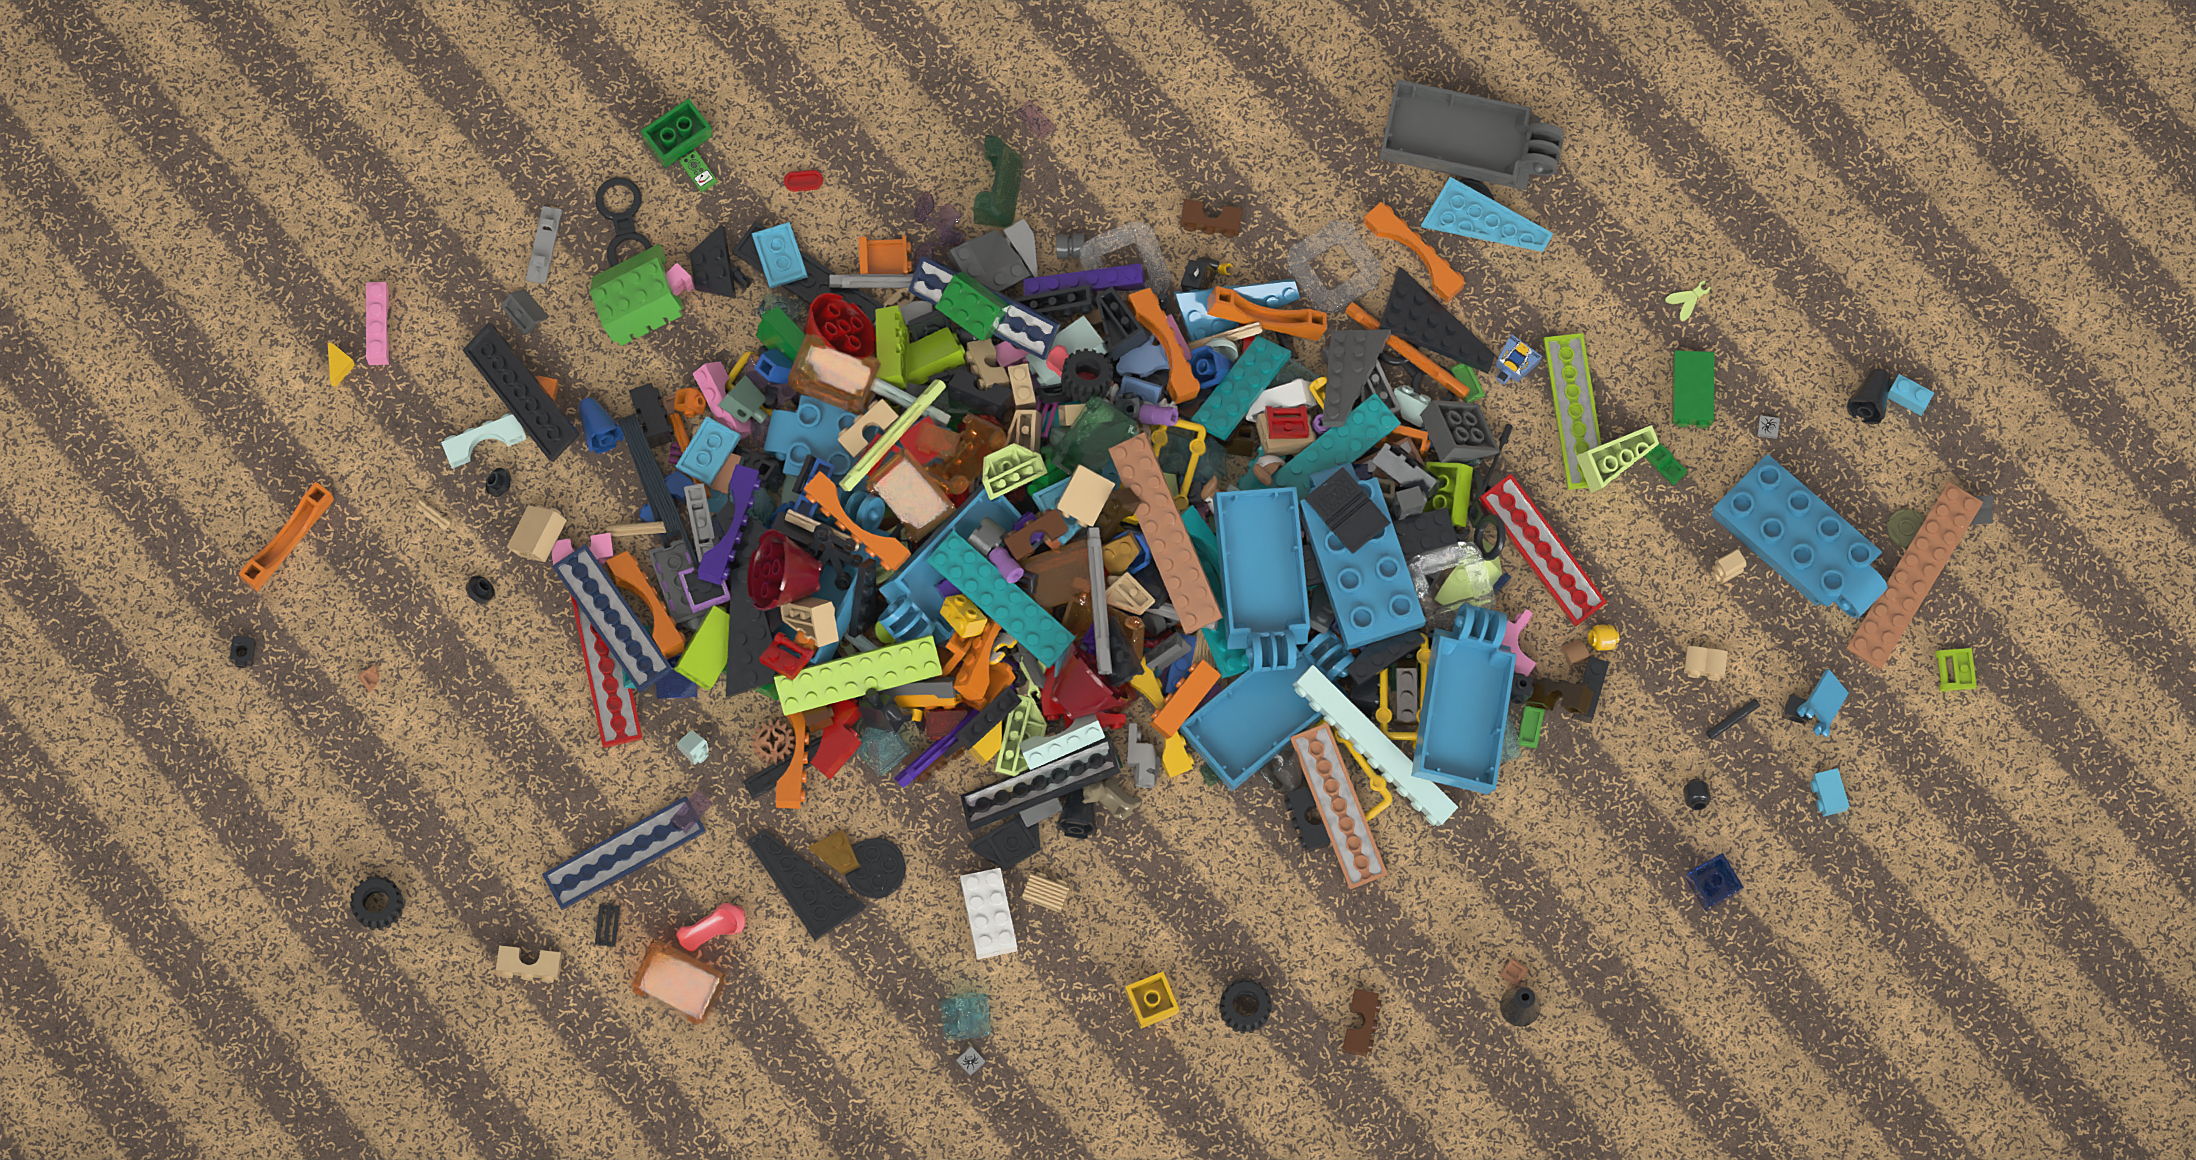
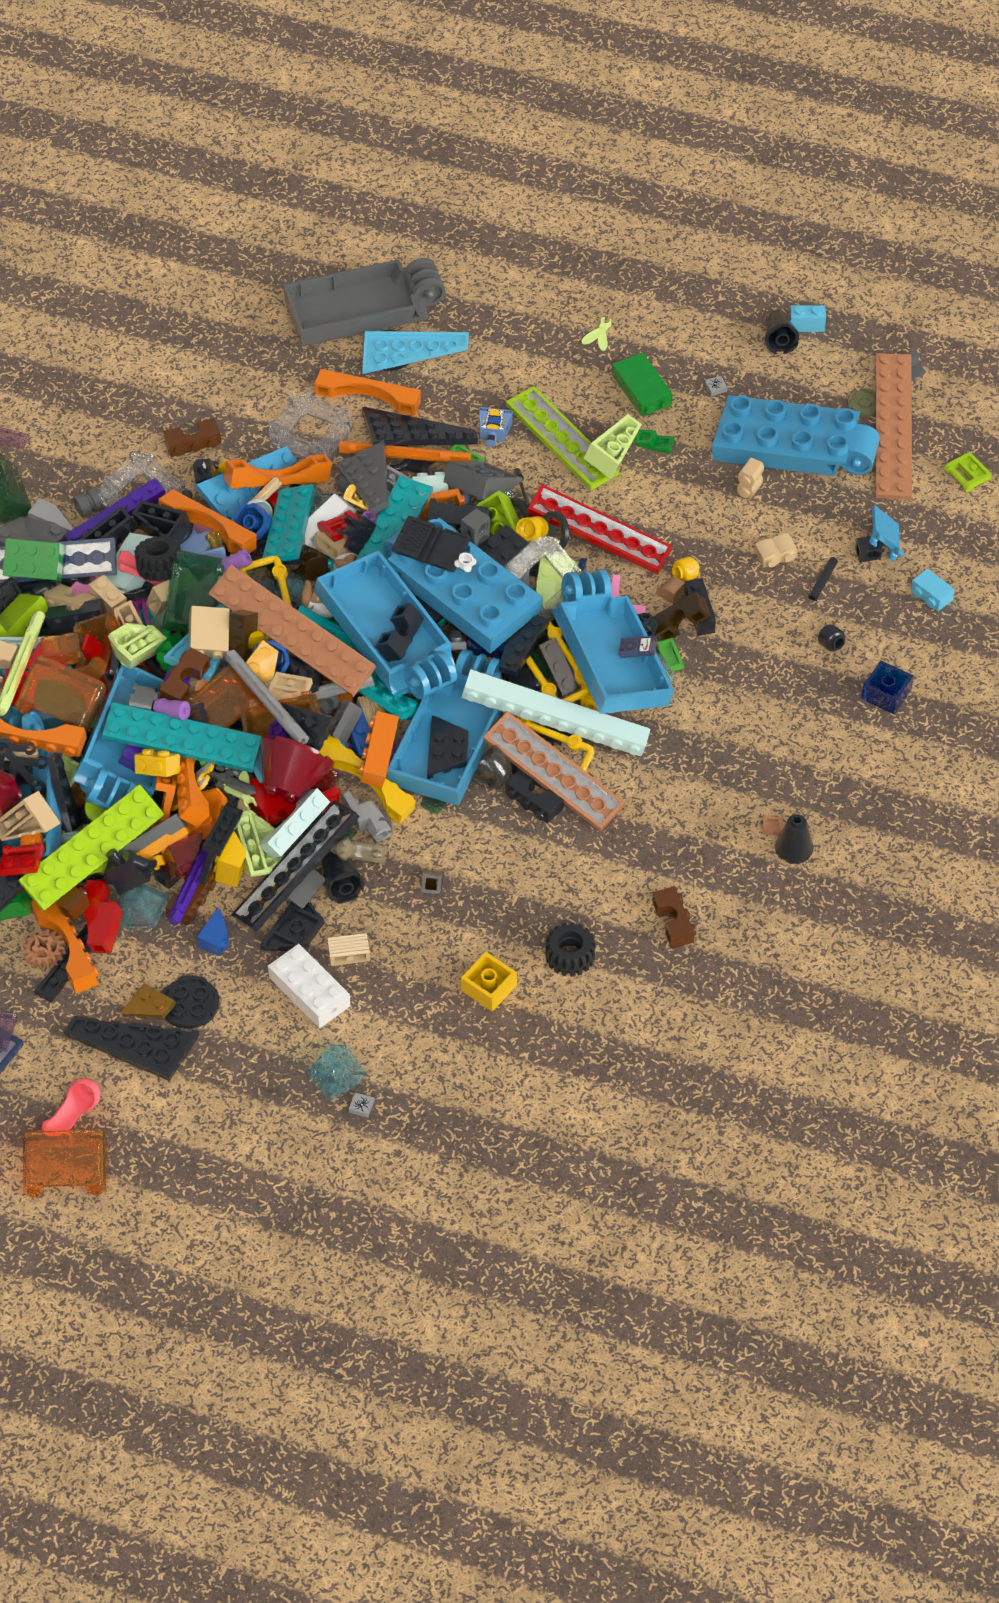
camera: 25 degrees left, 20 degrees down
(933, 811) = (214, 935): none -> blue slope
(969, 451) = (91, 647): none -> red slope
(1155, 371) = (214, 540): none -> clear yellow bush
(1161, 861) = (432, 882): none -> dark brown brick
(1254, 723) = (446, 747): none -> black wing
(1279, 583) = (395, 643): none -> black arch
(1294, 442) = (357, 533): none -> black plate
(1369, 544) = (465, 562): none -> white plate
(1470, 523) = (532, 528): none -> yellow wheel
(1490, 720) = (637, 646): none -> clear purple tile

